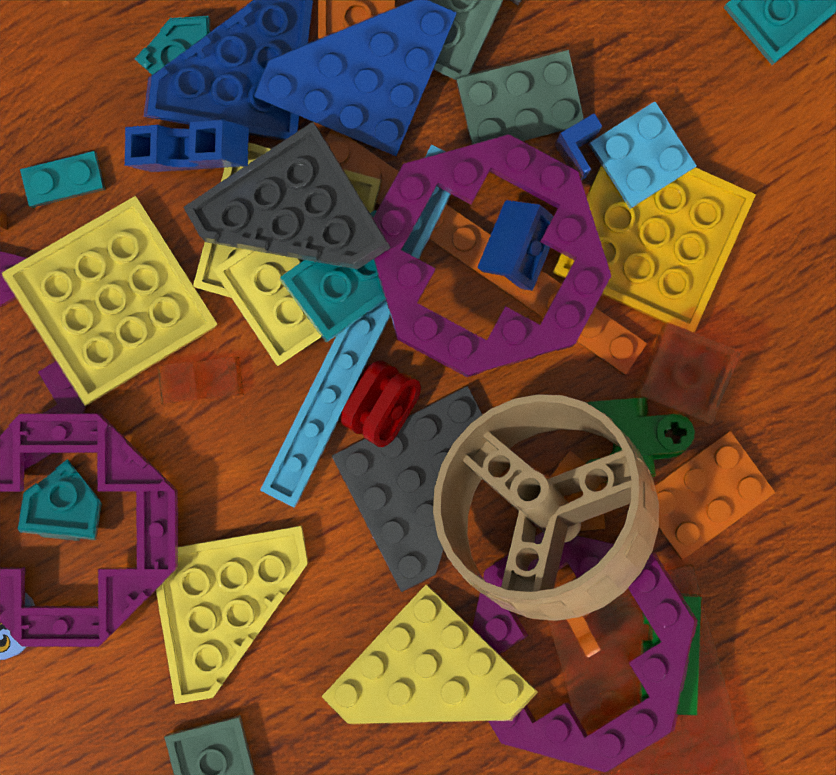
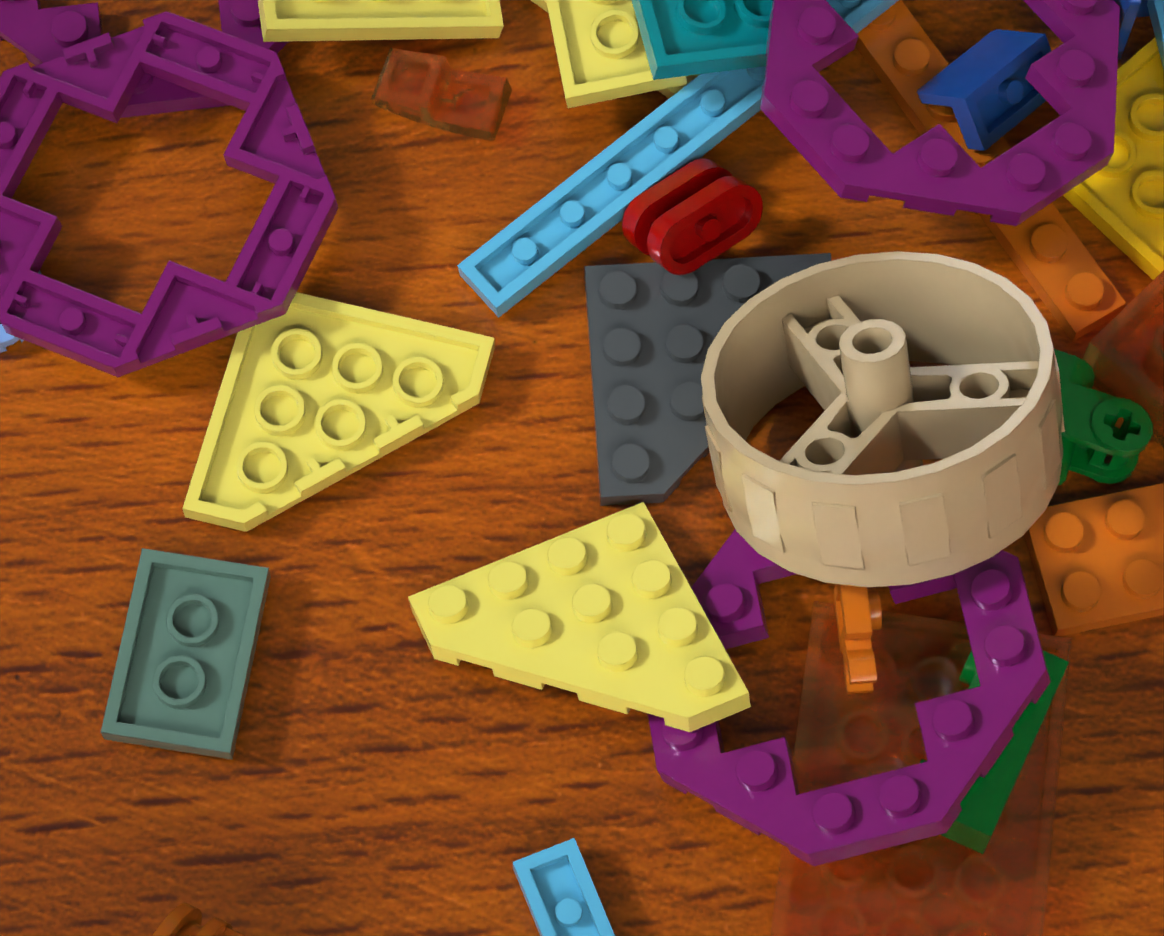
camera: 25 degrees right, 20 degrees down
(61, 507) = (154, 176): teal plate -> none

